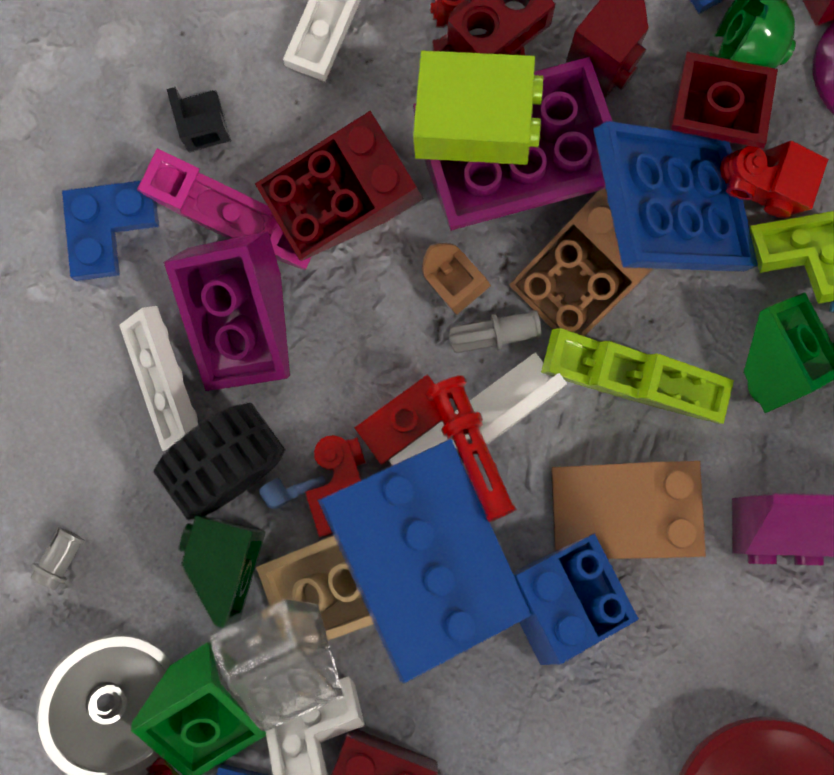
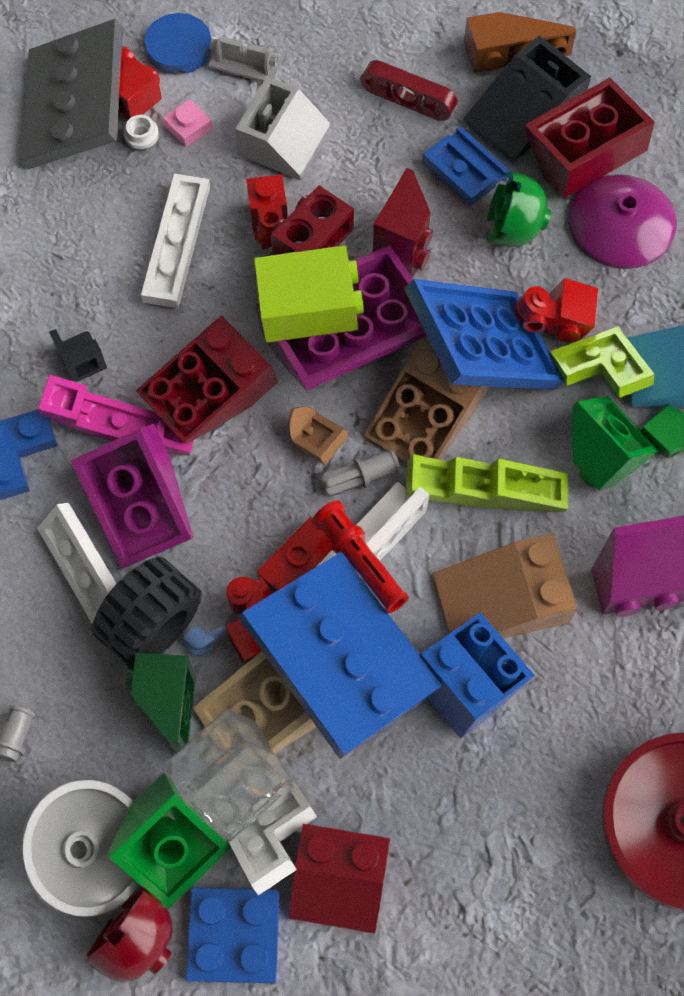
camera: 15 degrees left, 15 degrees down
(723, 100) = (503, 257): dark red slope -> none

